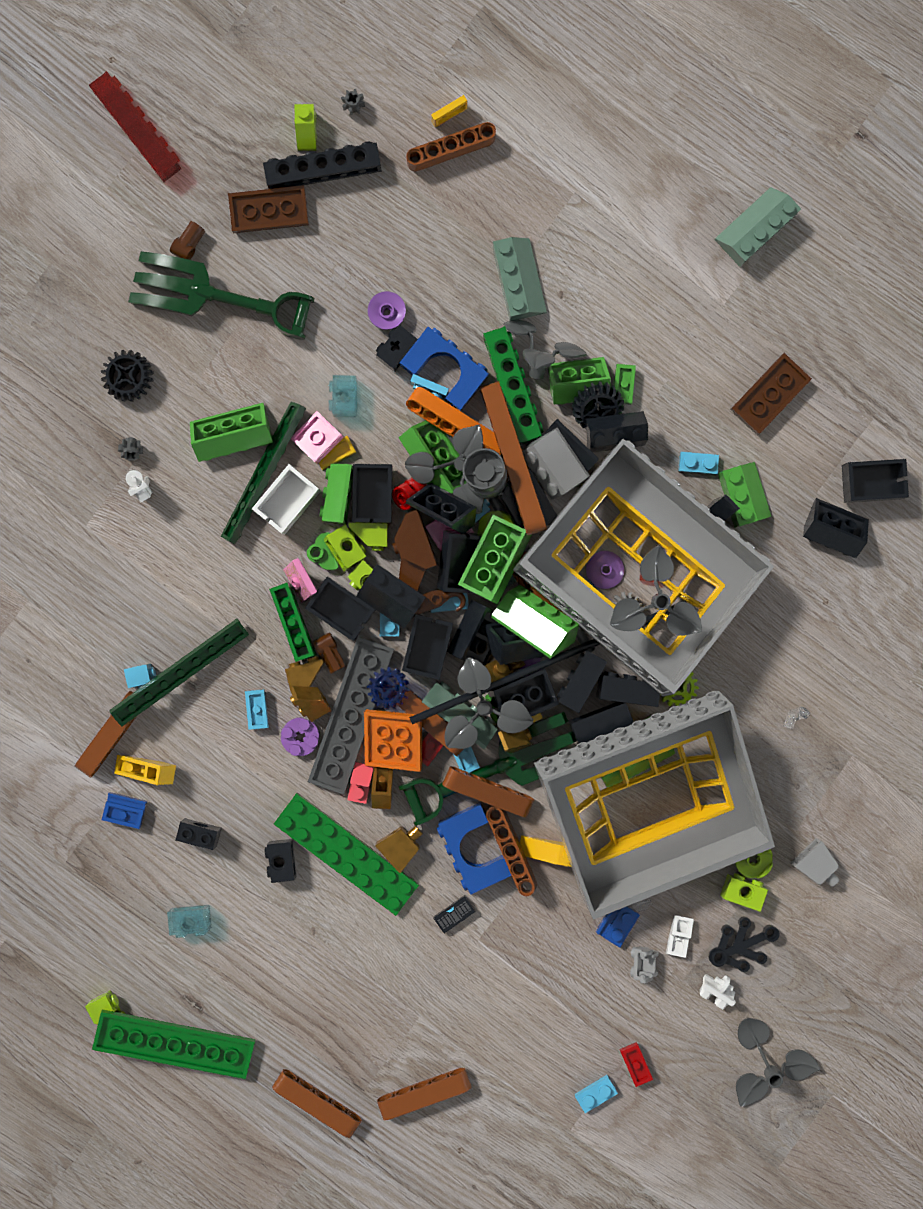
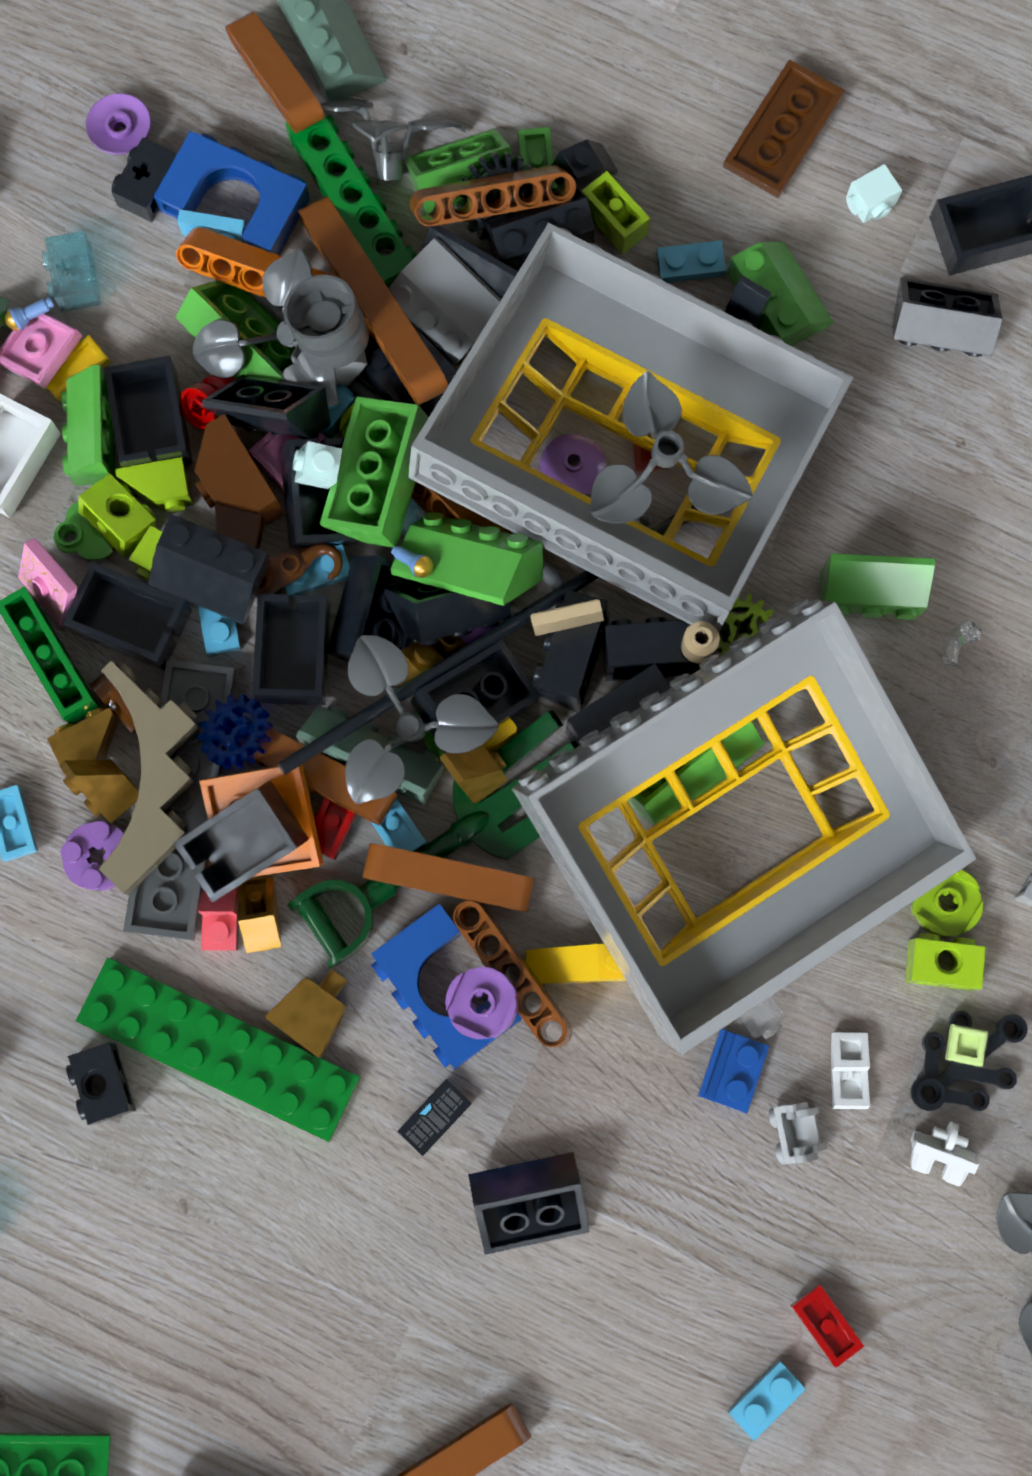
camera: 10 degrees left, 10 degrees down
(308, 418) = (19, 317): none -> medium blue piece
(347, 680) = (162, 781): none -> dark tan arch
(381, 752) = (242, 840): none -> piece
(463, 553) = (317, 465): none -> light aqua brick
(483, 300) = (275, 72): none -> dark orange beam
(493, 876) = (463, 1012): none -> medium lavender plate
(495, 969) = (528, 1203): none -> black slope
(508, 620) = (420, 564): none -> piece
(583, 669) = (567, 617): none -> tan tile
(602, 414) = (507, 201): none -> dark orange beam
(649, 395) = (584, 163): none -> black slope
(649, 695) = (699, 652): none -> tan brick
(662, 427) = (616, 213): none -> lime brick
(744, 937) = (966, 1045): none -> yellowish green tile
(757, 679) = (877, 584): none -> bright green slope
(812, 446) = (873, 194): none -> light aqua brick

